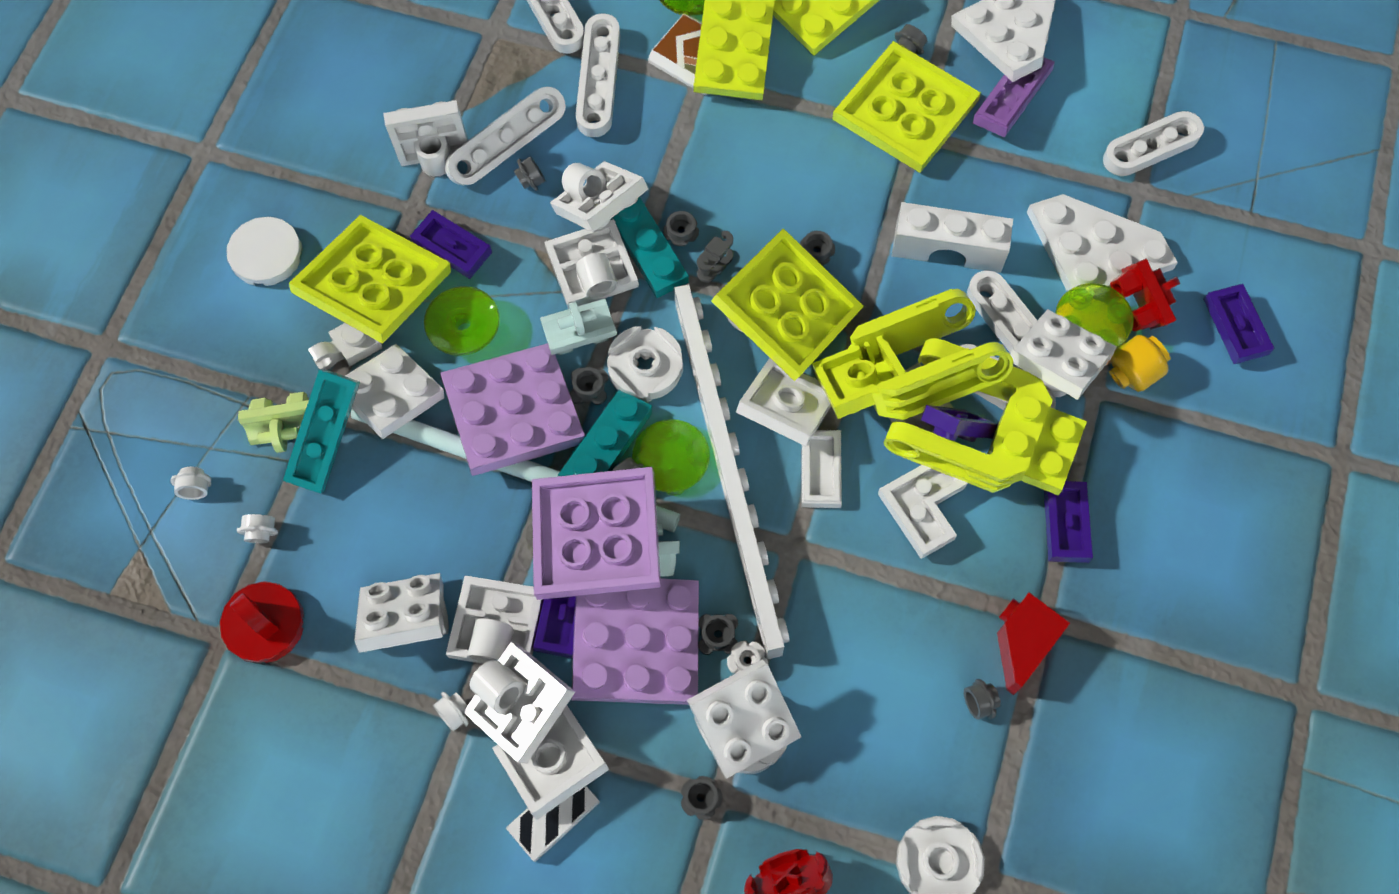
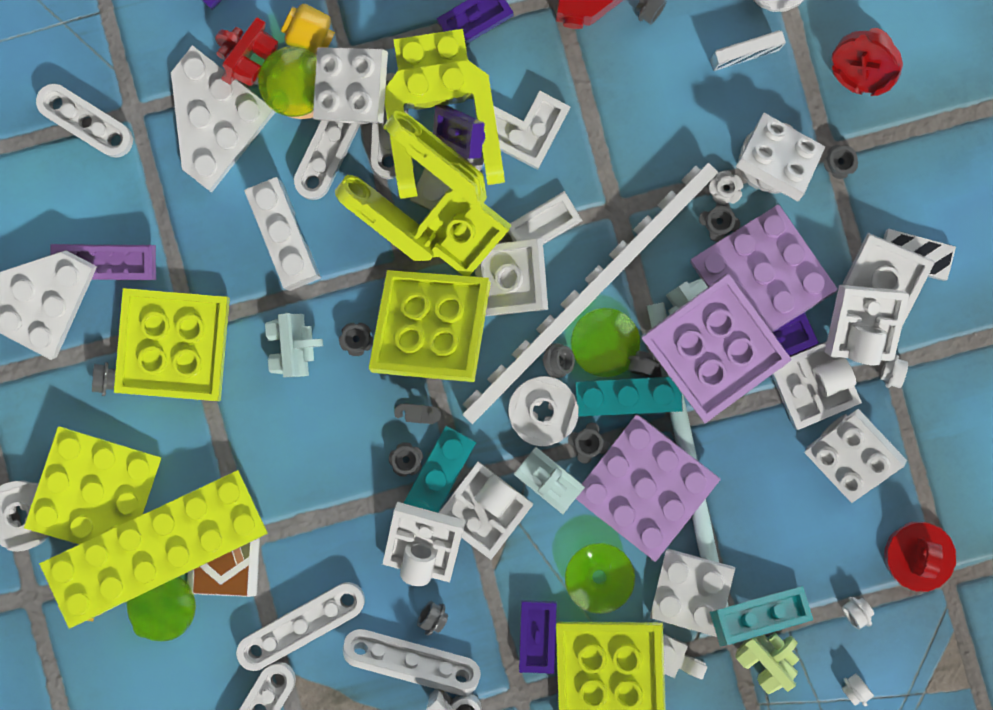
camera: 125 degrees left, 20 degrees up
(676, 408) = (558, 360): none -> dark grey plate
(845, 193) = (295, 345): none -> light aqua hips
(878, 769) = (747, 50): none -> white tile

